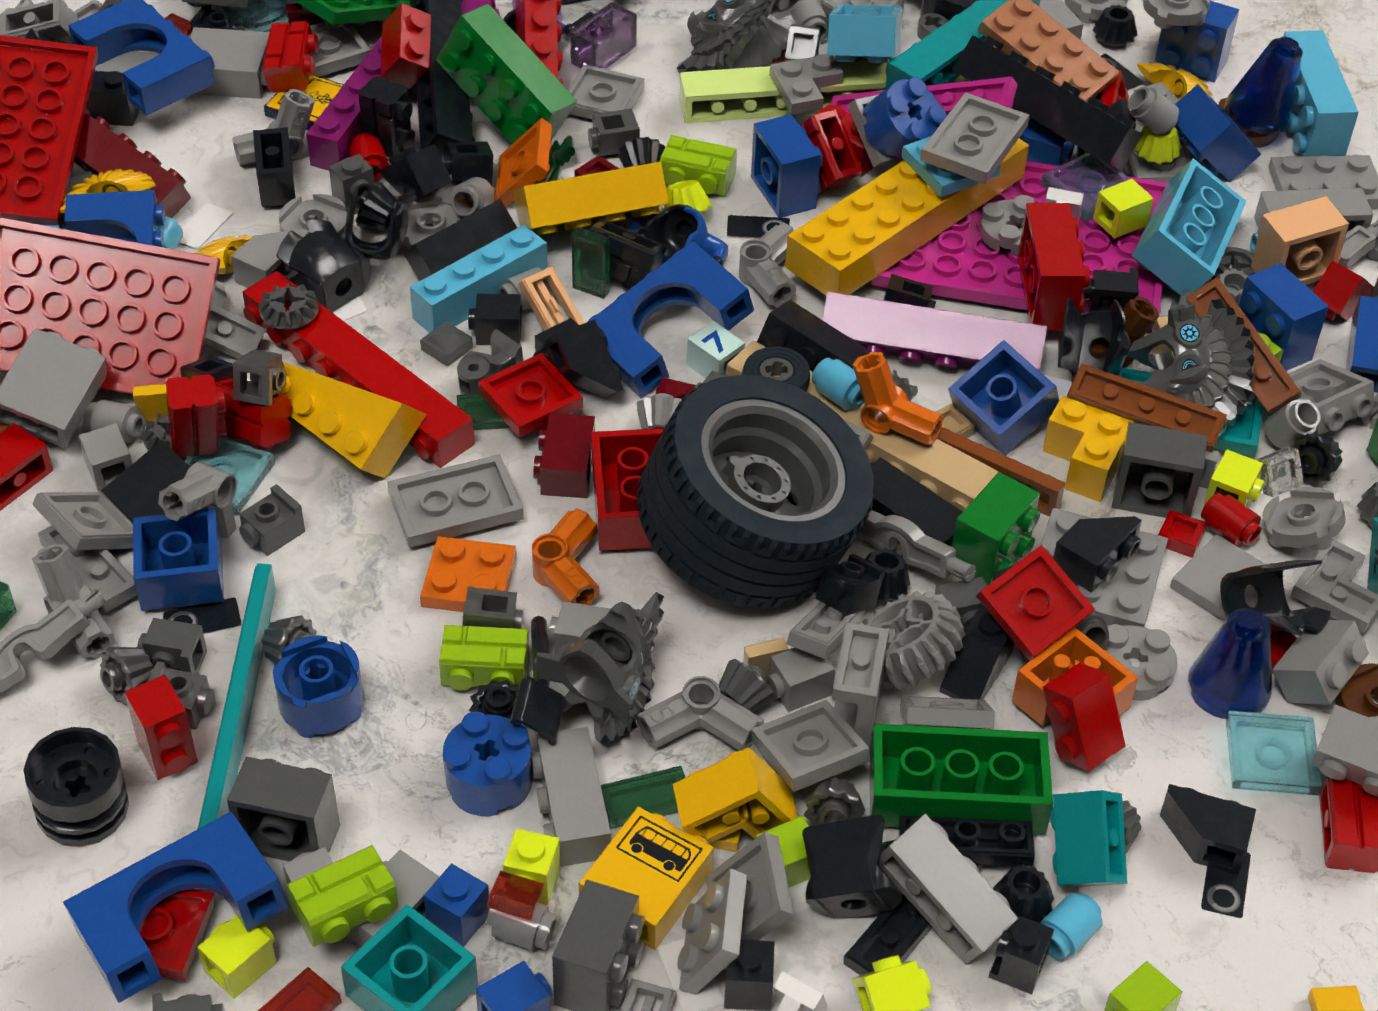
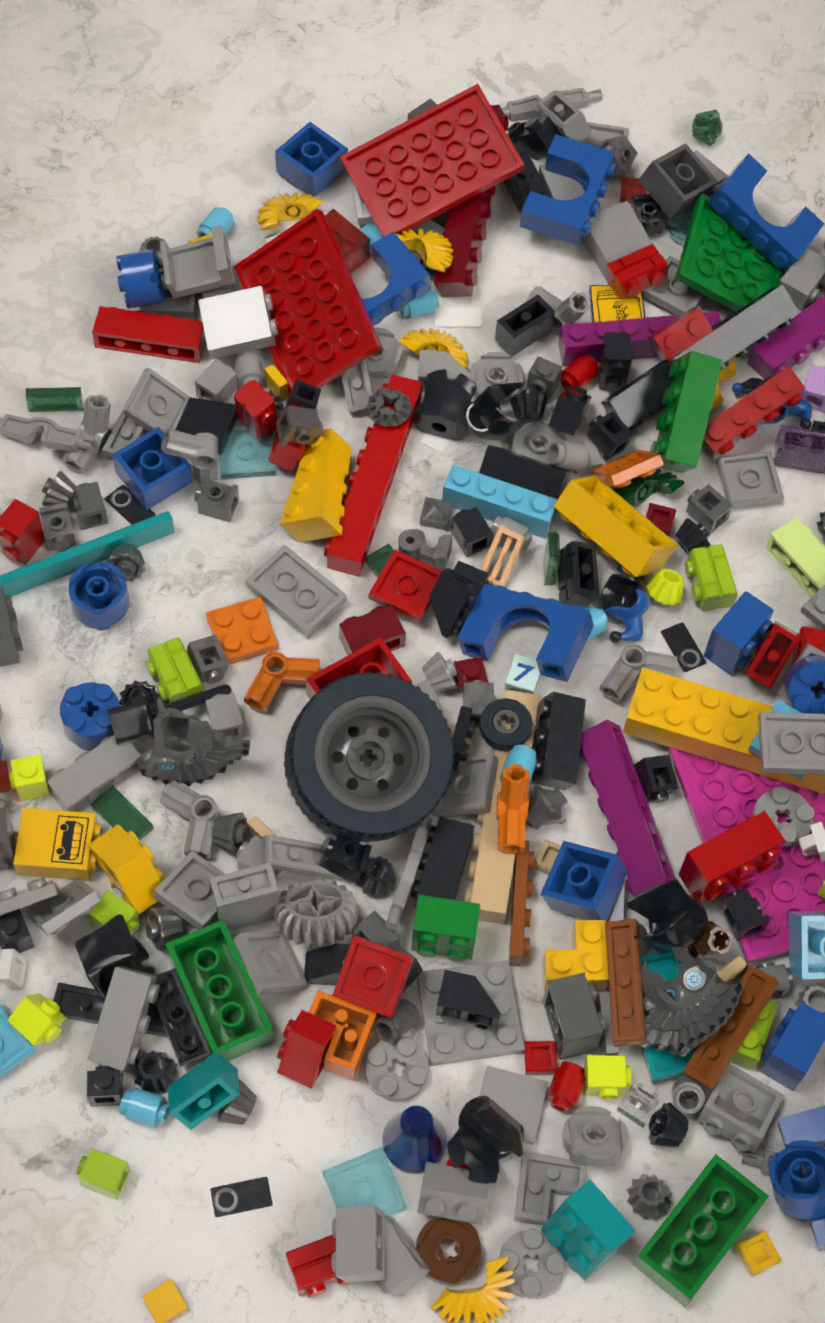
camera: 60 degrees right, 15 degrees up
(1208, 827) = (266, 1169): black slope -> none

